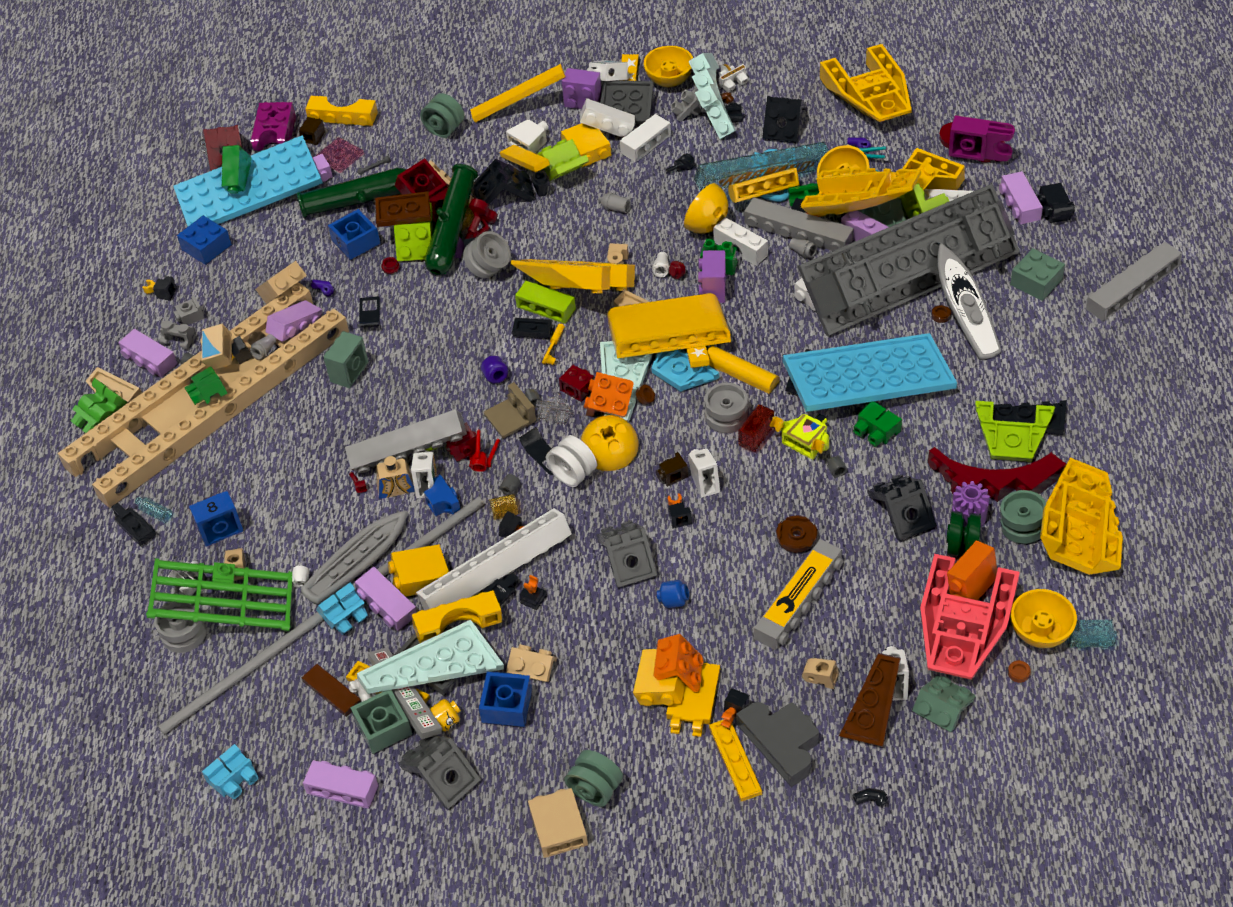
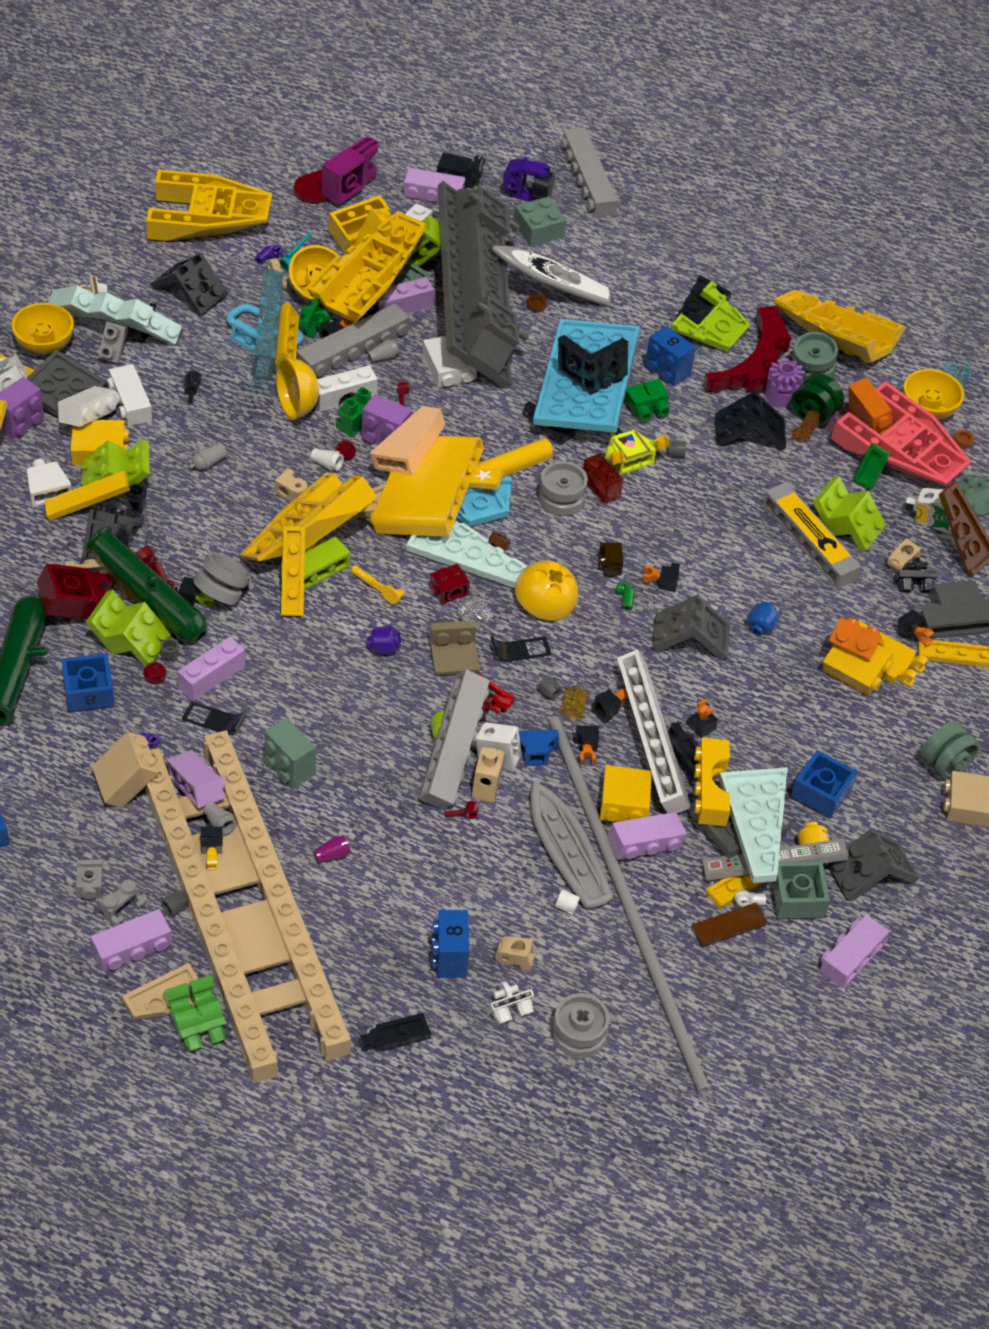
camera: 75 degrees left, 0 degrees up
(153, 509) = (385, 1007): clear light blue cylinder -> none
(162, 288) = (28, 893): black piece -> none
(205, 385) = (256, 883): green hips -> none
(216, 346) = (206, 853): tan brick -> none
(222, 580) = (547, 961): bright green door -> none
(230, 772) = (793, 1040): medium azure hips -> none
(282, 424) = (333, 849): none -> magenta cone
(341, 606) = (637, 875): medium azure hips -> none
(402, 209) = (107, 615): reddish brown tile -> none
(407, 289) = (211, 668): none -> lavender brick
(413, 262) = (169, 649): none -> dark grey hose
(468, 527) = (588, 739): none -> black piece
(515, 285) = (293, 571): none -> yellow tile
(525, 662) = (785, 751): tan bracket -> none
(532, 328) = (343, 590): black plate -> none
(571, 461) = (562, 622): white wheel -> none
(608, 395) = (490, 565): orange bracket -> none
(647, 493) = (628, 595): none -> green arm
(696, 293) = (409, 442): none -> light nougat slope
(702, 463) = (633, 533): white torso -> none
(770, 274) = (403, 388): none -> dark red hand
(795, 682) = (906, 577): none -> black hips
(796, 526) = (739, 508): reddish brown plate -> none
(838, 609) = (849, 513): none -> lime bracket
(857, 359) = (595, 369): none -> black bracket
(910, 605) = (871, 466): none -> green tile
(934, 415) = (670, 356): none -> blue brick
(934, 542) = (807, 426): none -> clear orange arm
(1076, 246) = (516, 179): none -> dark purple piece

